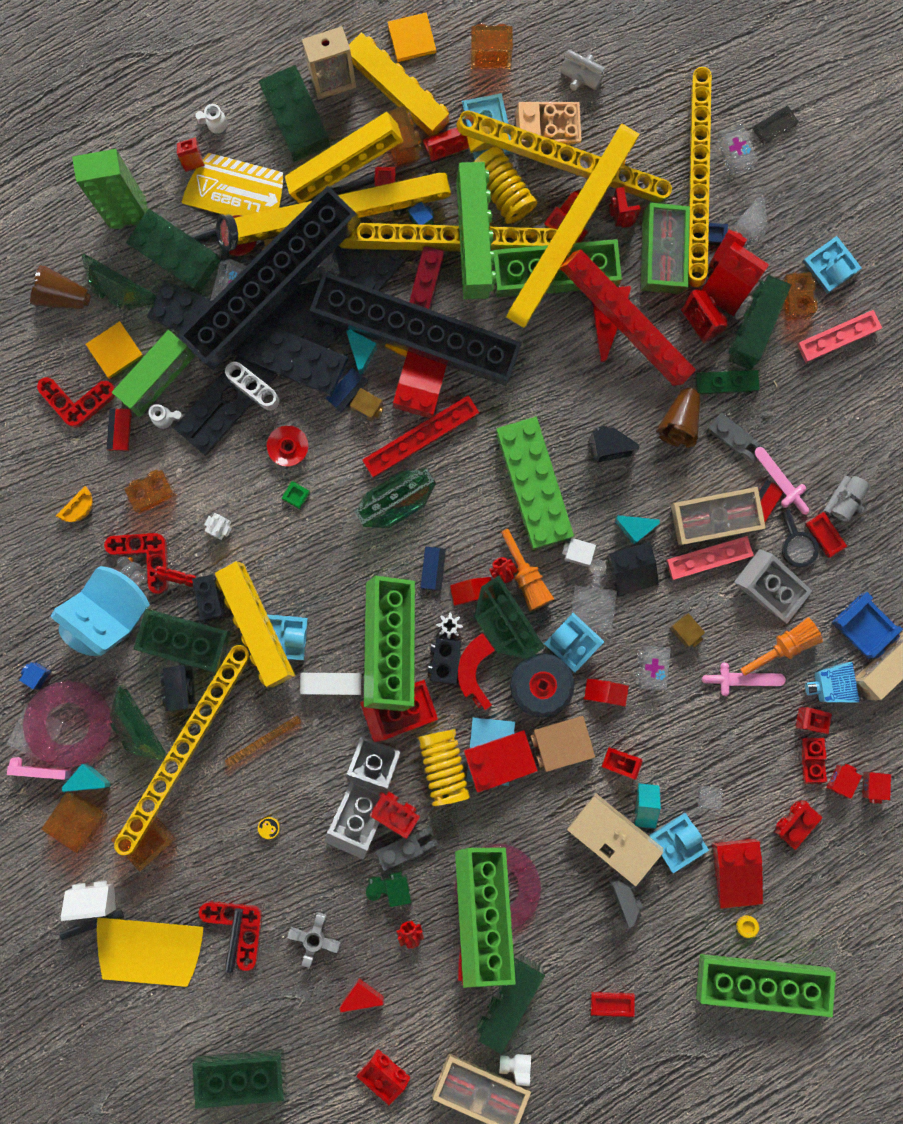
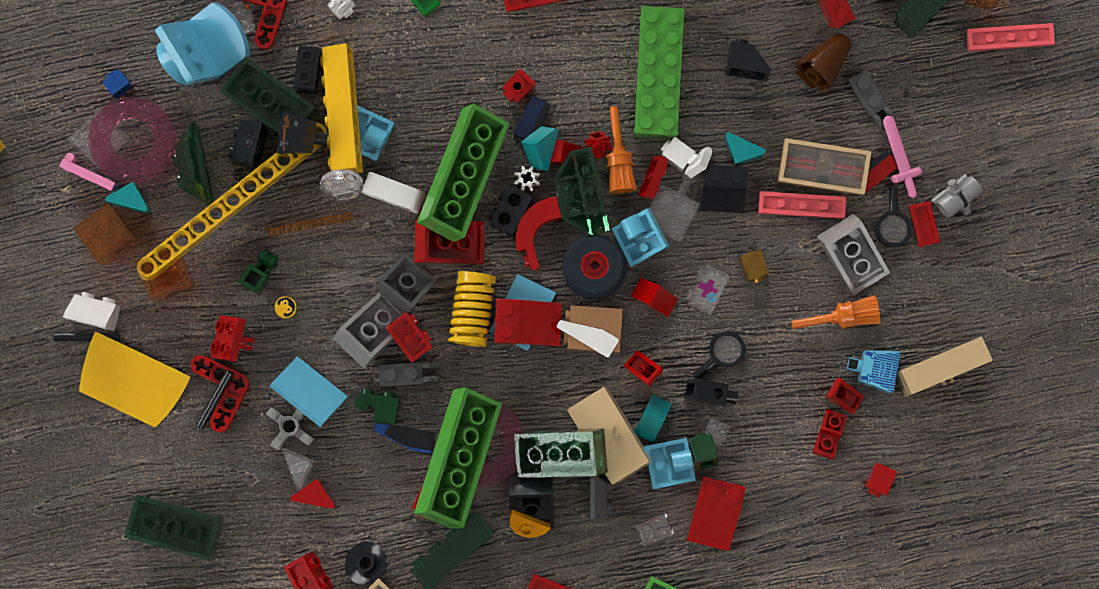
camera: 25 degrees right, 0 degrees up
(174, 576) = (282, 37): red axle -> none
(223, 665) = (298, 135): none -> torso
(227, 879) = (229, 339): none -> red plate
(232, 810) = (256, 277): none -> dark green brick
(279, 694) = (341, 184): none -> clear tile
(319, 901) = (308, 391): none -> medium azure tile
(336, 974) = (299, 467): none -> clear slope
(395, 499) = (520, 39): clear green wedge -> none
(410, 935) = (382, 454): red gear -> none
(417, 539) = (526, 83): none -> red brick
(423, 1047) = (358, 558): none -> black dish
(430, 907) = (410, 438): none -> black sticker
(450, 592) = (540, 147): none -> teal slope
(564, 582) = (656, 170): none -> red plate
(564, 925) = (532, 497): none -> black slope
(565, 752) = (593, 337): none -> white sticker
(570, 951) = (527, 526): none -> light orange plate
(577, 874) = (560, 453): none -> clear green brick
(603, 553) = (698, 162): none -> white plate
(687, 911) = (654, 529): none -> clear slope
(690, 717) = (725, 350): none -> piece
(691, 764) = (702, 390): none -> black torso
(708, 822) = (704, 451): none -> dark green brick
(727, 382) = (884, 42): dark green plate -> none
(738, 679) = (776, 327): bright pink sword -> none
(747, 926) = (706, 567): yellow tile -> none
(797, 824) = (791, 489): red bracket -> none
(844, 780) = (851, 463): red brick -> none
(867, 626) = (929, 325): blue panel -> none

